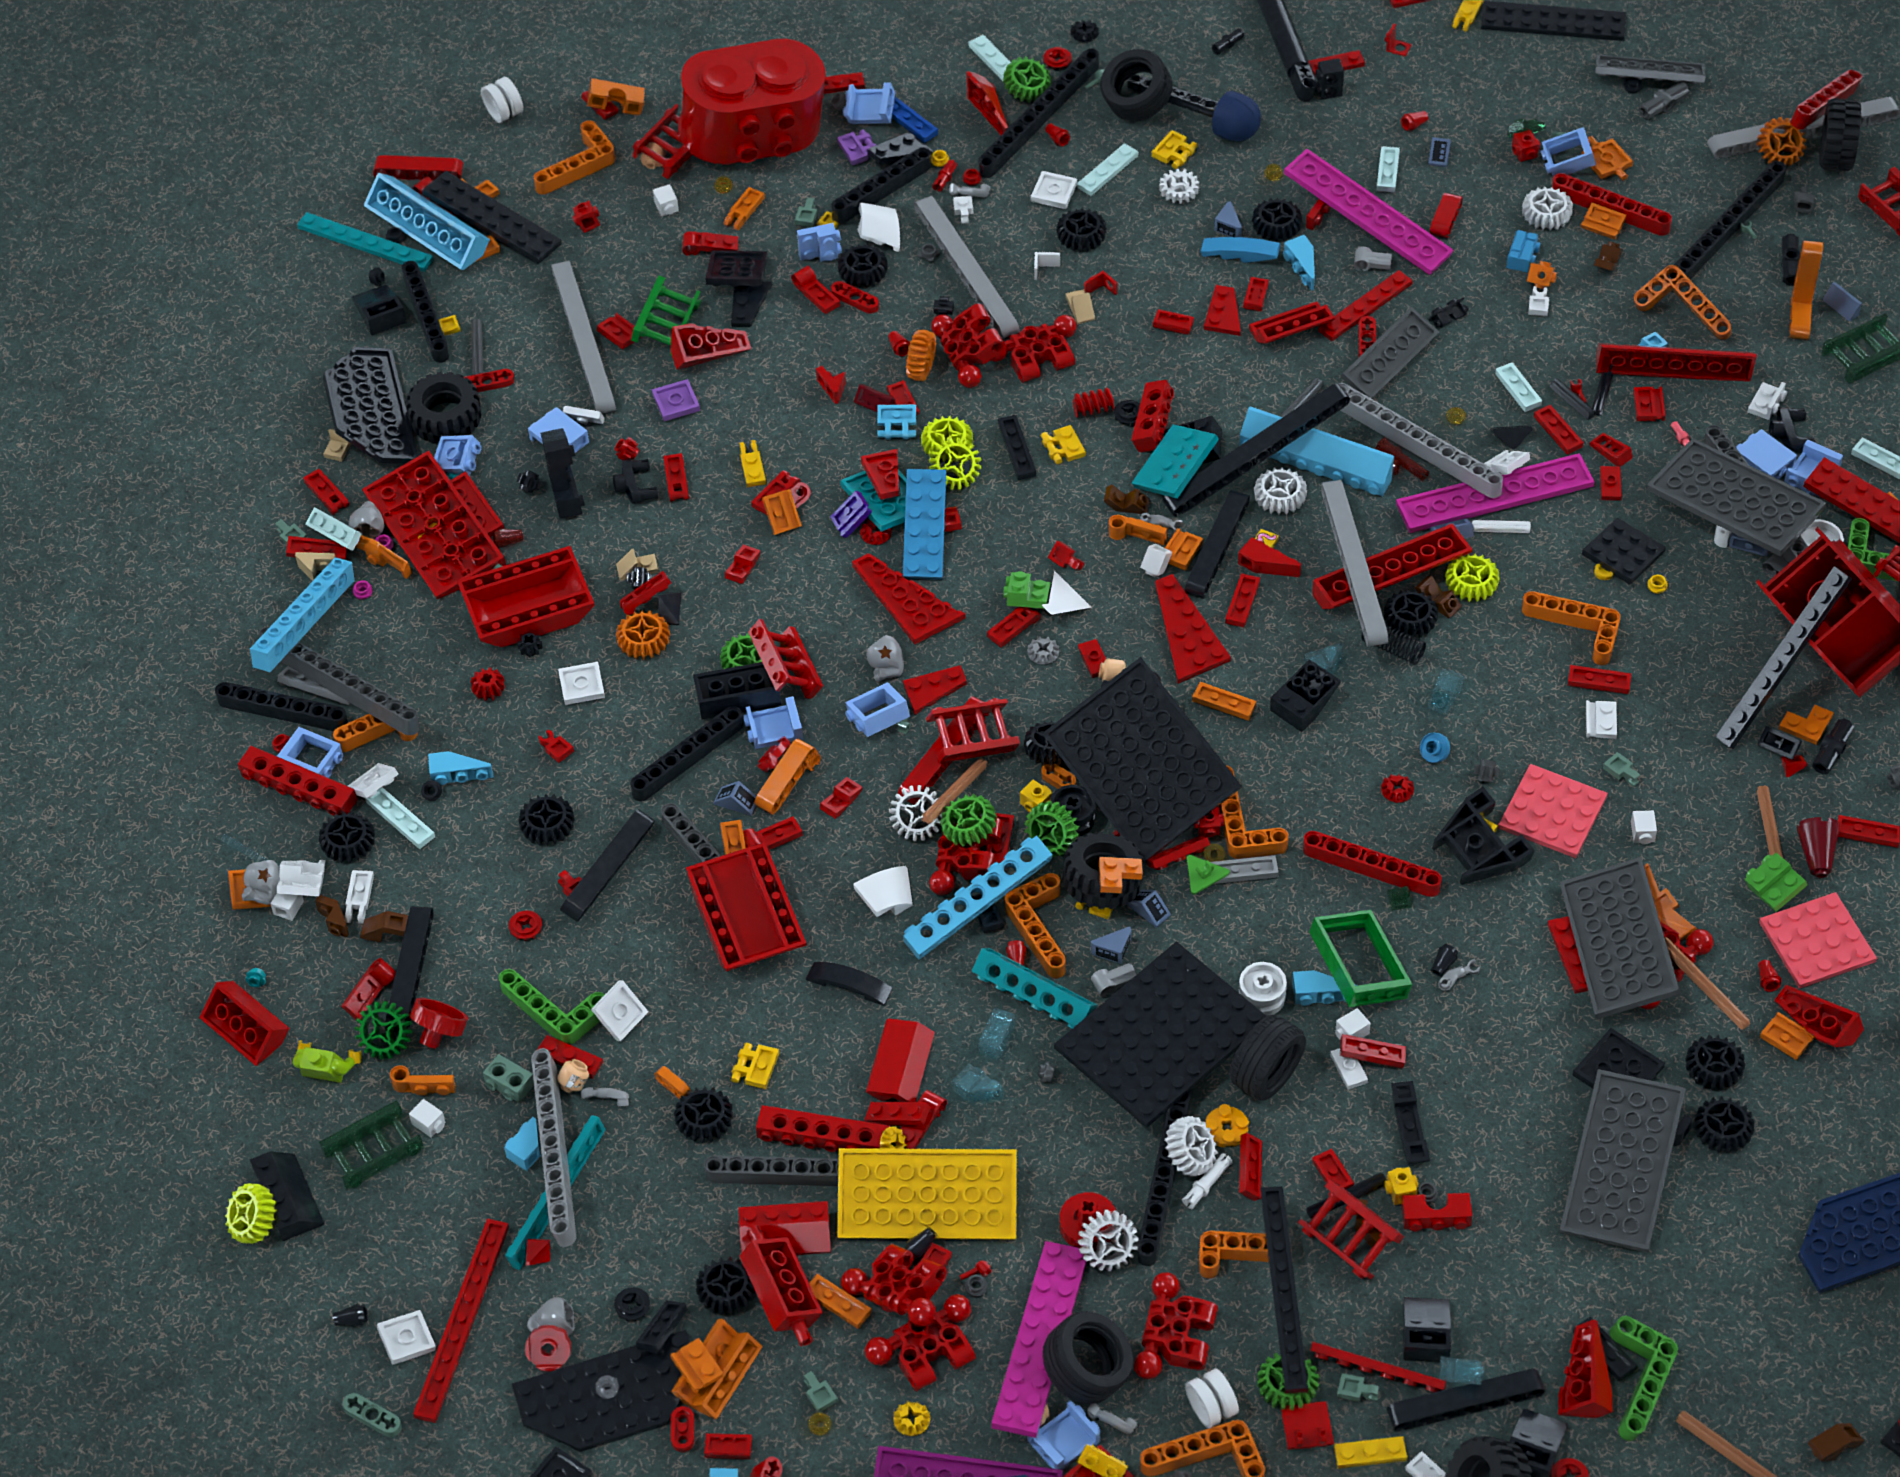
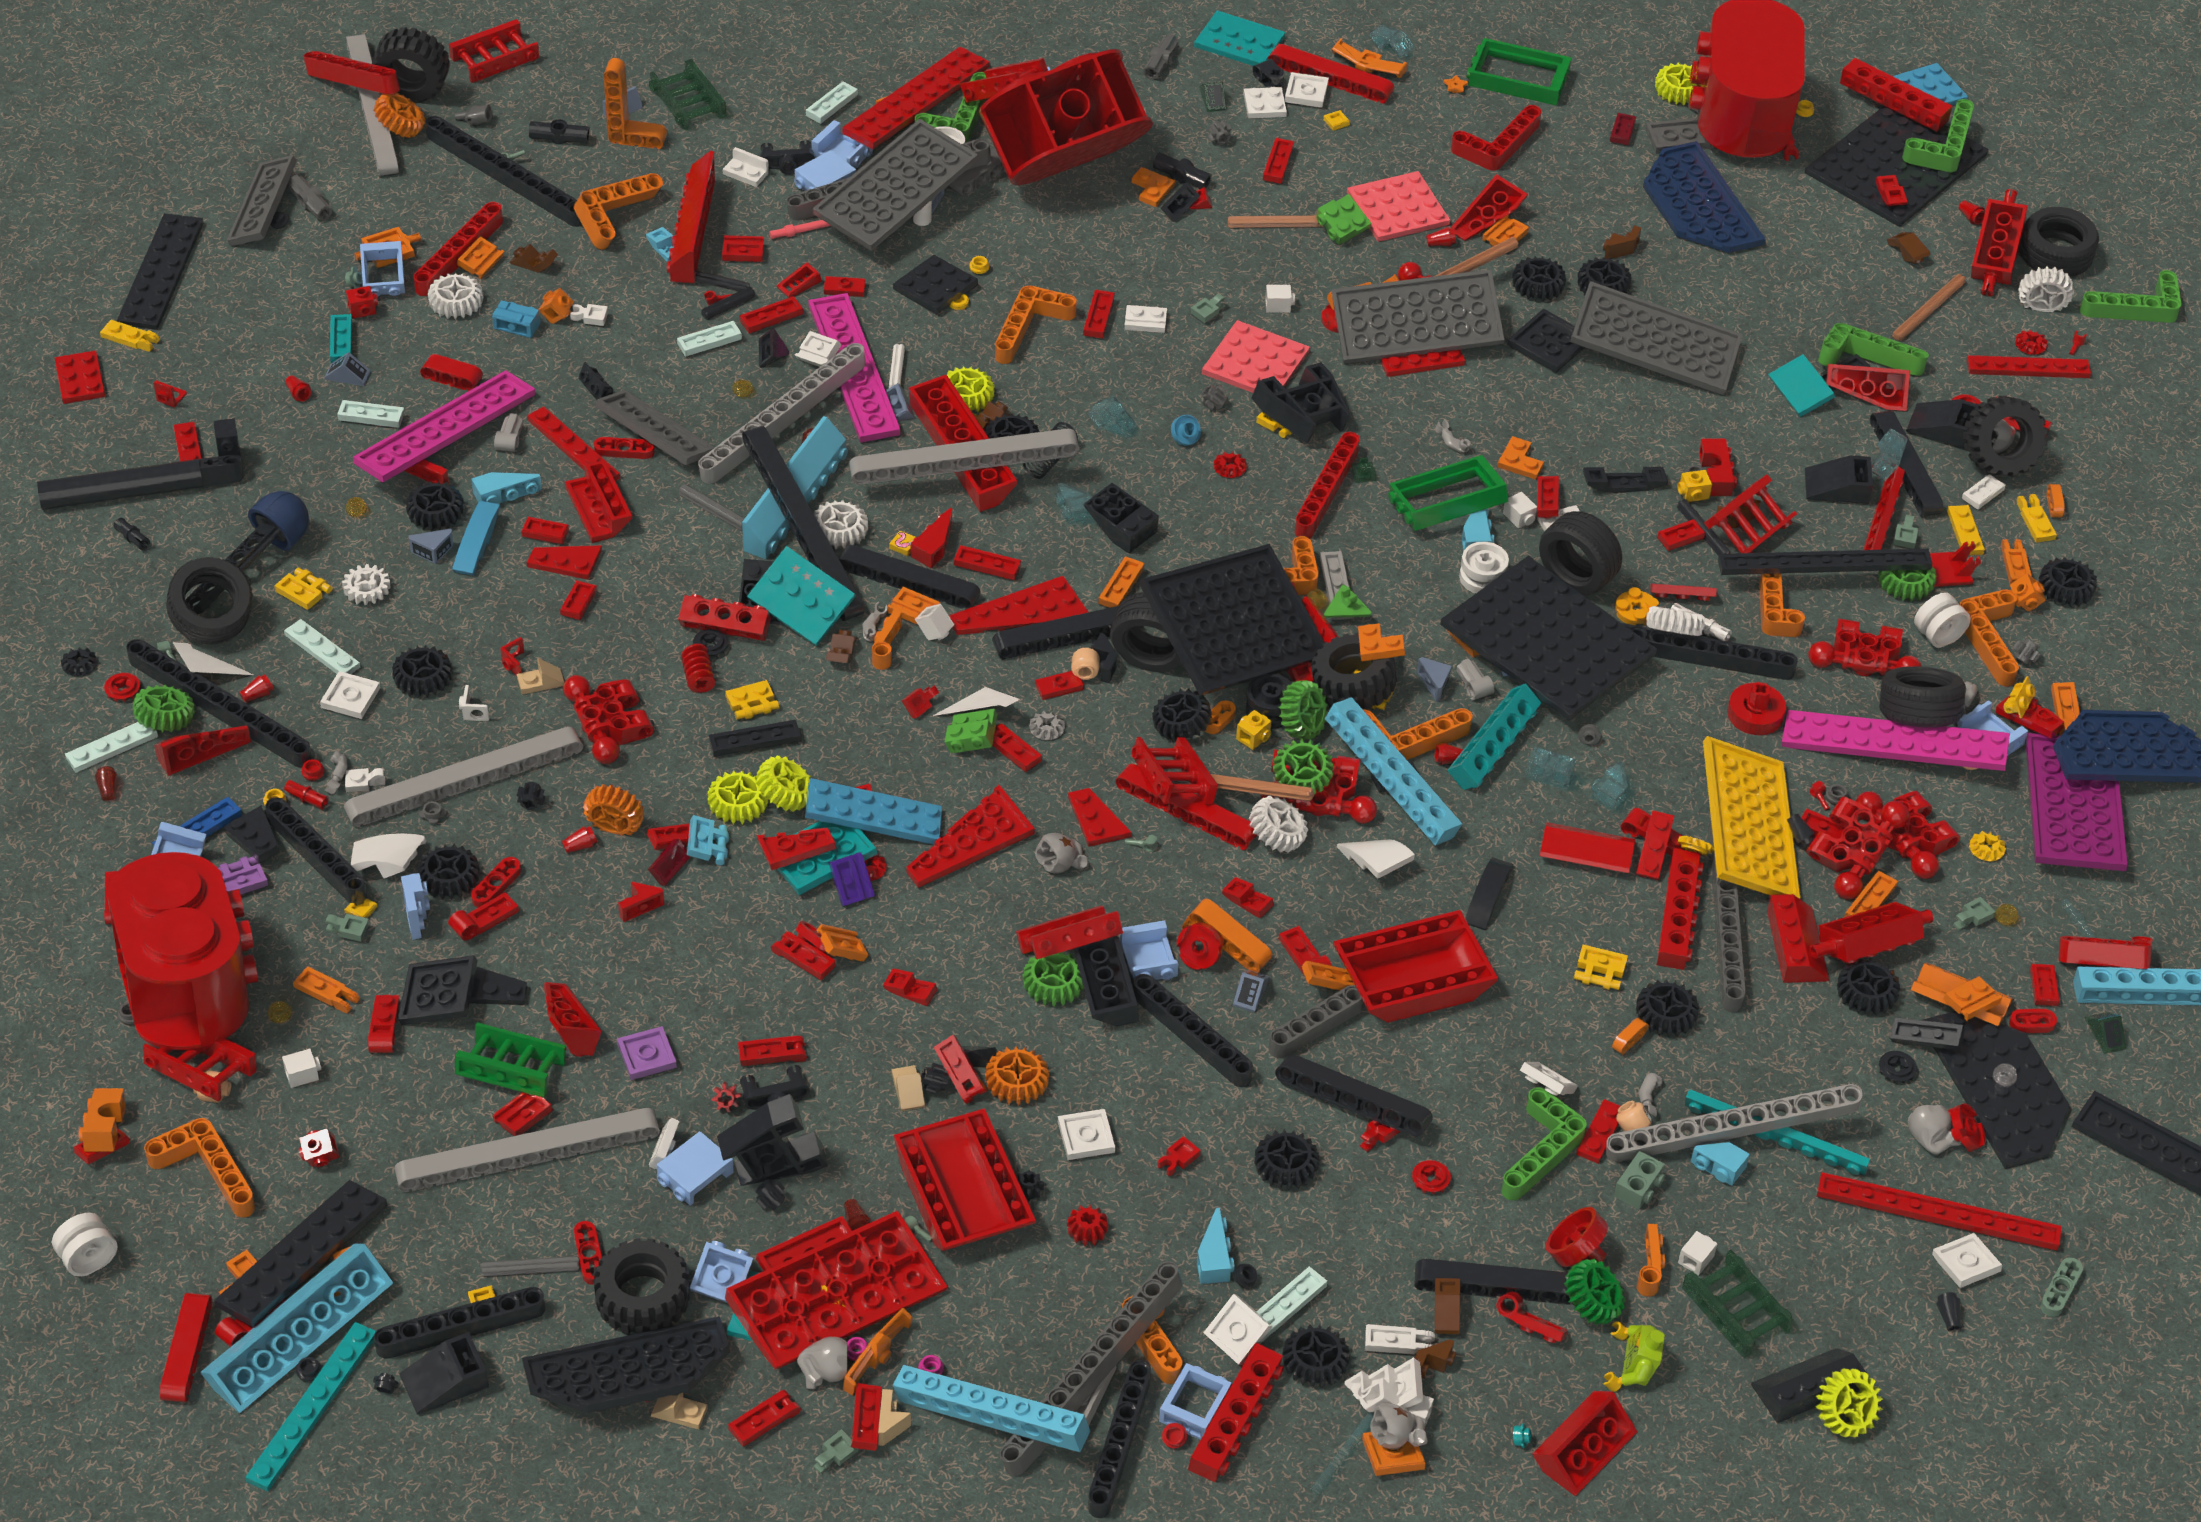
camera: 95 degrees left, 5 degrees down
(333, 529) = (843, 1391): light aqua plate -> none
(537, 1251) = (1848, 1144): red slope -> none
(752, 465) = (754, 980): yellow hinge -> none
(882, 718) = (1125, 842): light blue window -> none
(952, 61) = (106, 781): none -> clear red cone
(964, 343) = (569, 751): red connector -> none
(1082, 101) = (201, 662): none -> white sticker
(1112, 1232) = (1787, 684): white gear -> none
(1155, 652) = (1054, 633): none -> black beam
(1406, 462) = (795, 435): clear red pin -> none
(1432, 1030) = (1516, 461): none -> orange plate
(1444, 959) = (1435, 443): black cone -> none
(1481, 140) = (340, 336): none -> teal plate
(1523, 125) = (337, 297): clear green plate -> none
(1576, 1304) = (1801, 385): none -> teal tile
(1781, 1138) = (1622, 245): none -> reddish brown slope
(1783, 657) = (1124, 154): plate -> none
(1819, 844) = (1301, 187): dark red cone -> none

